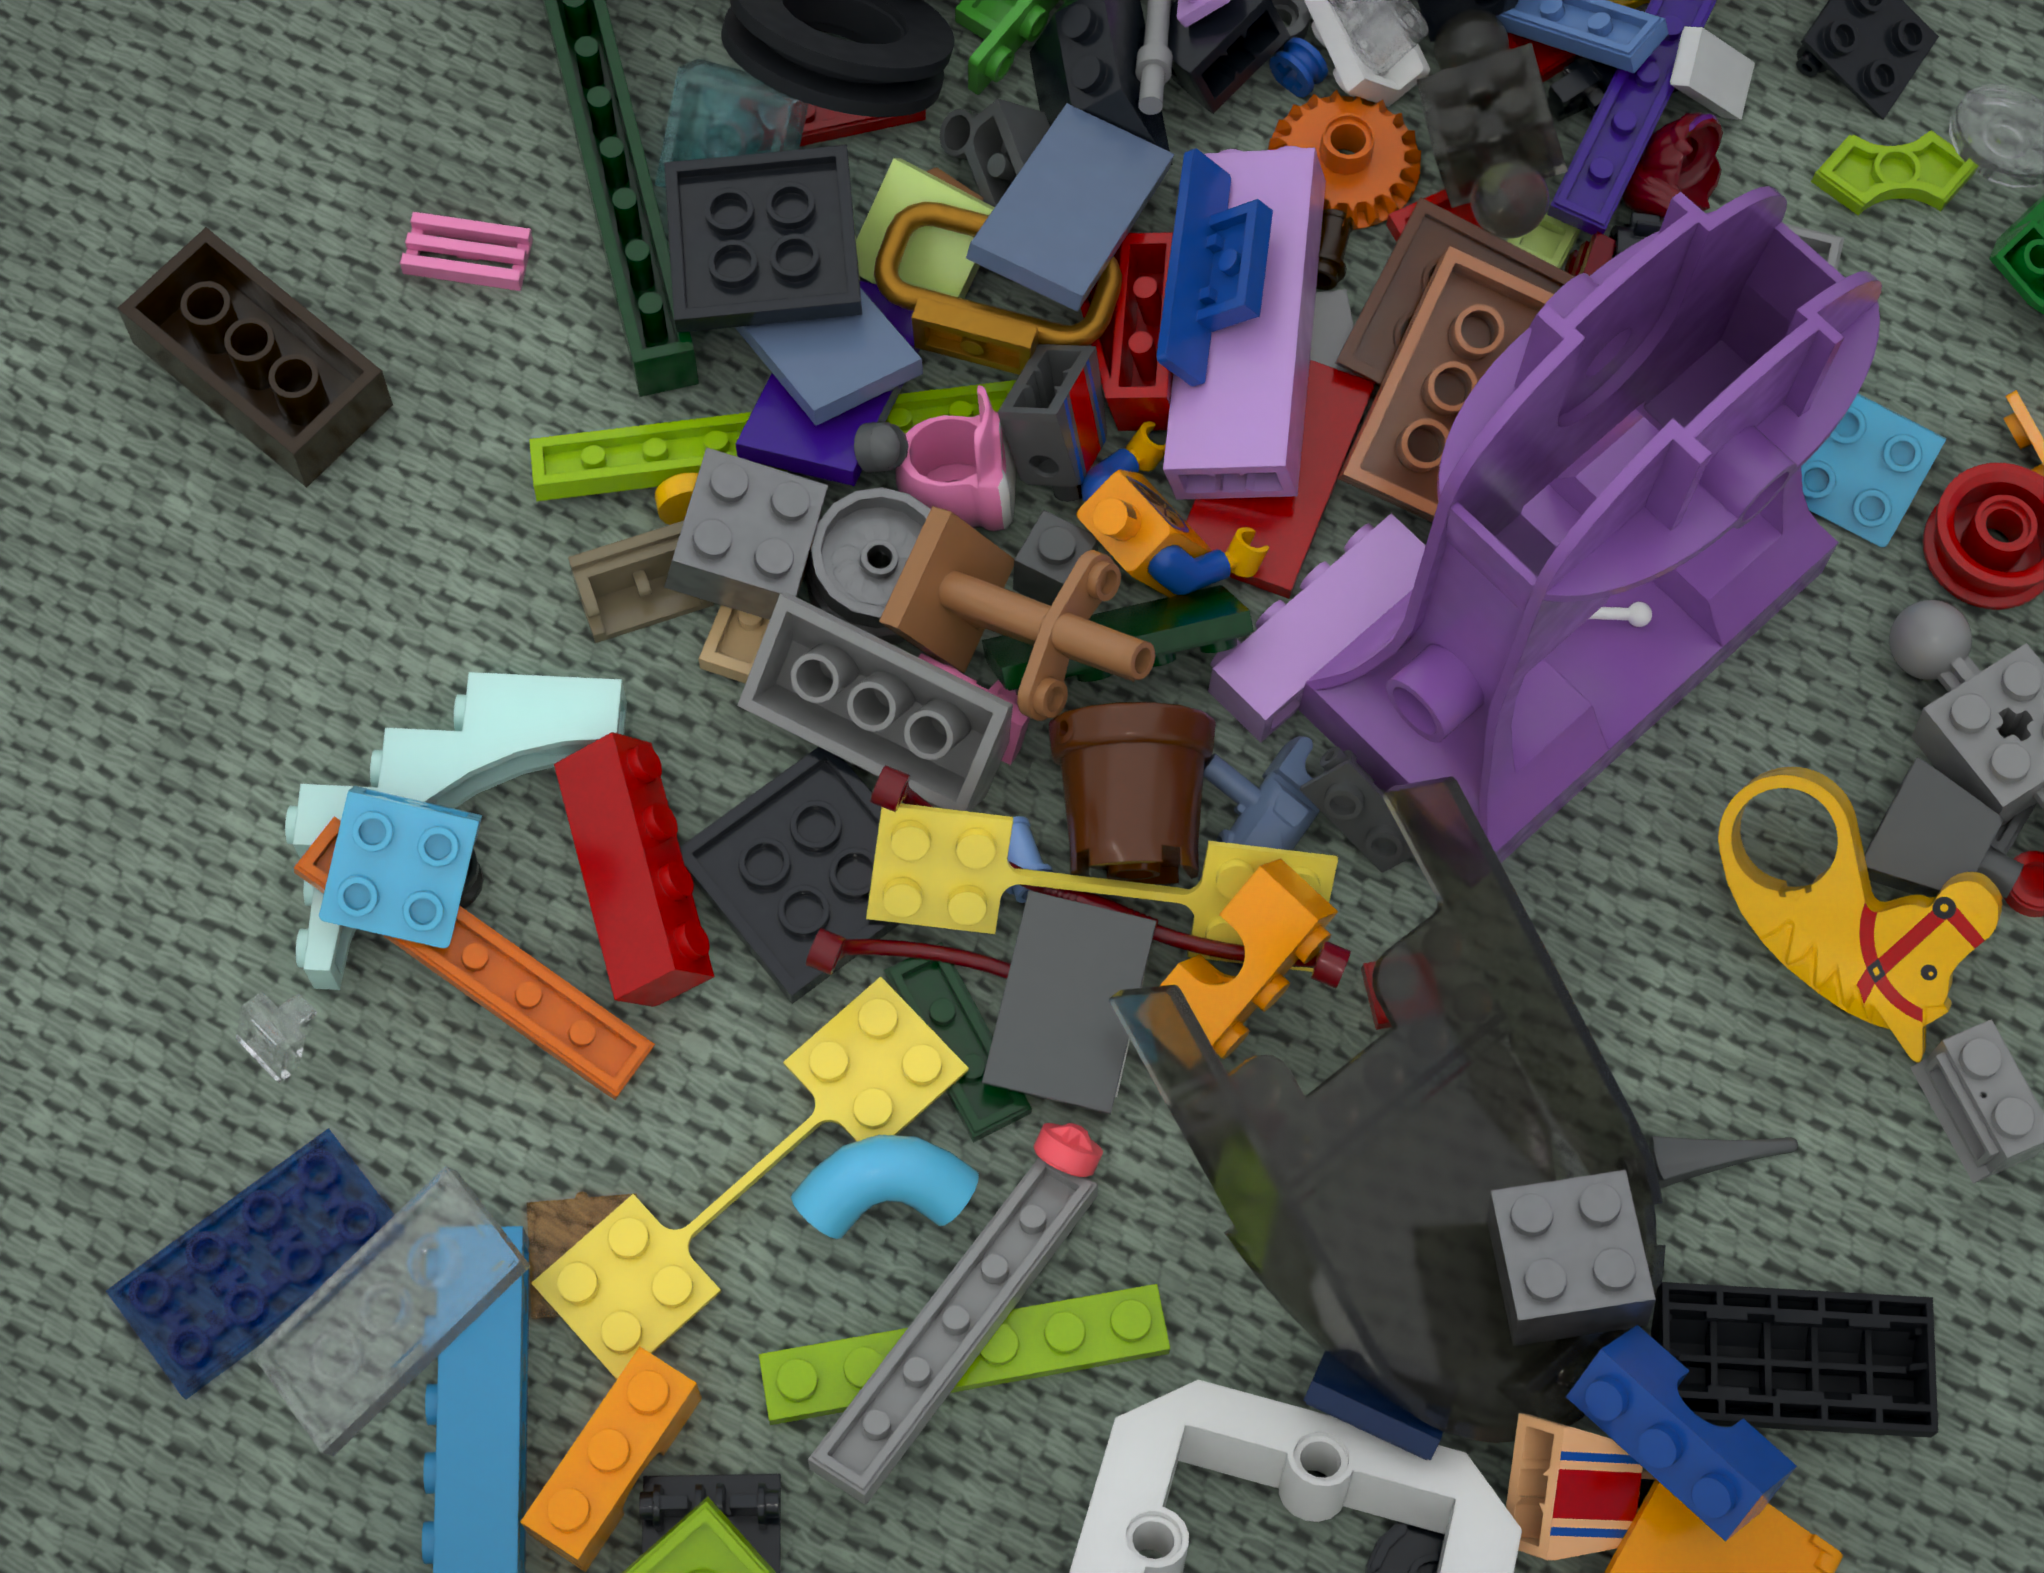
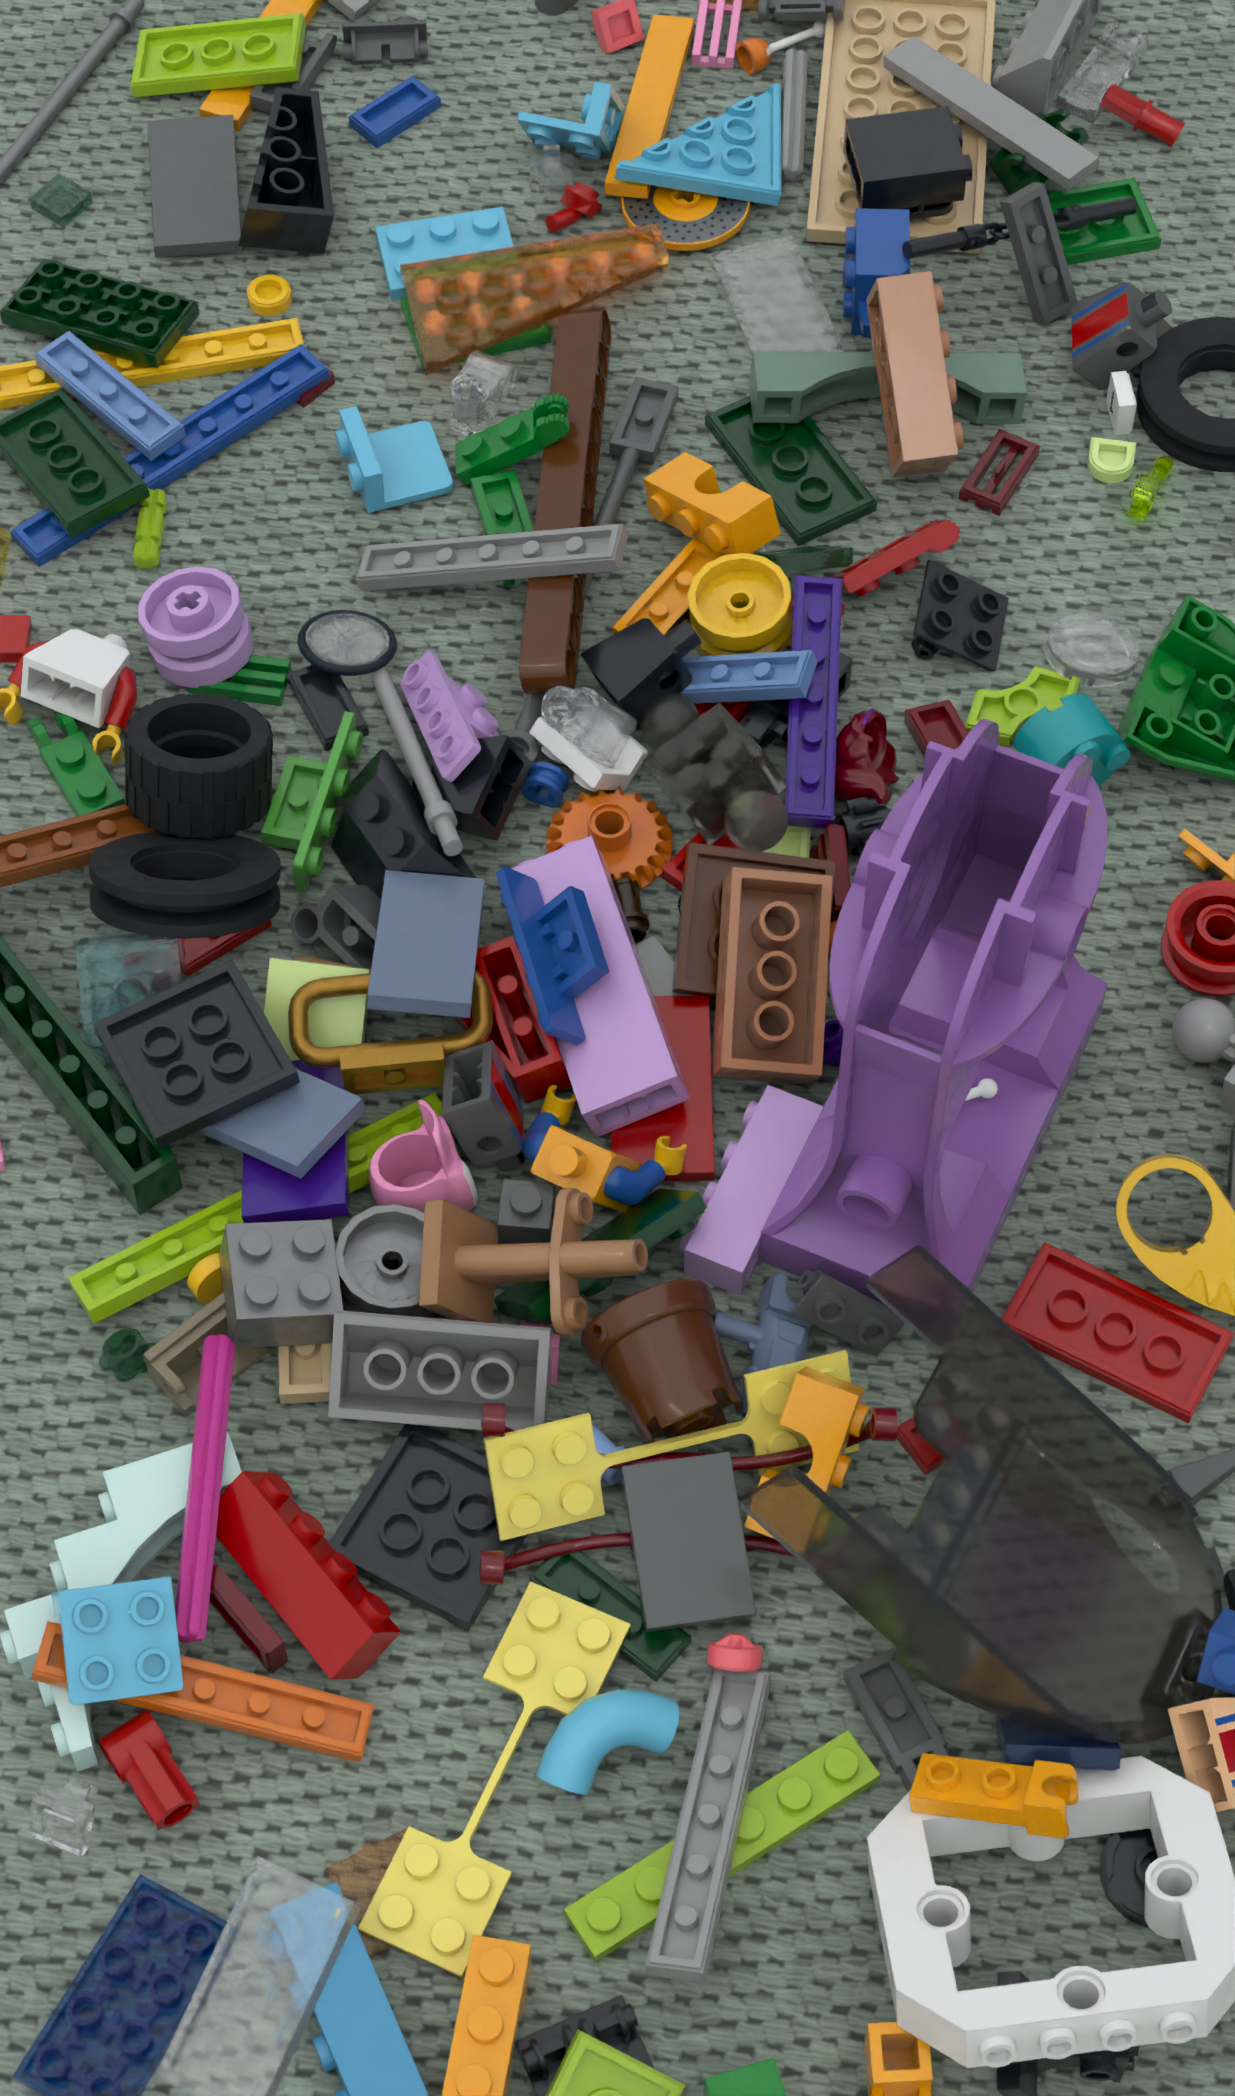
camera: 20 degrees left, 10 degrees down
(384, 1007) = (145, 1762): none -> red piece
(552, 545) = (124, 1354): none -> clear green plate
(554, 893) = (246, 1621): none -> dark red tile
(565, 734) = (204, 1488): none -> dark pink axle
(880, 447) = (358, 1176): dark grey hinge -> none
(1218, 1299) = (895, 1713): none -> dark grey hinge
(1279, 1429) = (997, 1792): none -> light orange plate
(1570, 1257) = (1153, 1577): flat silver brick -> none
(1668, 952) = (1117, 1332): none -> red tile
(1712, 72) = (859, 679): white tile -> none
(1786, 164) = (935, 723): none -> dark red tile
(1869, 470) = (1115, 928): medium azure bracket -> none
(1924, 246) = (1072, 730): none -> teal brick

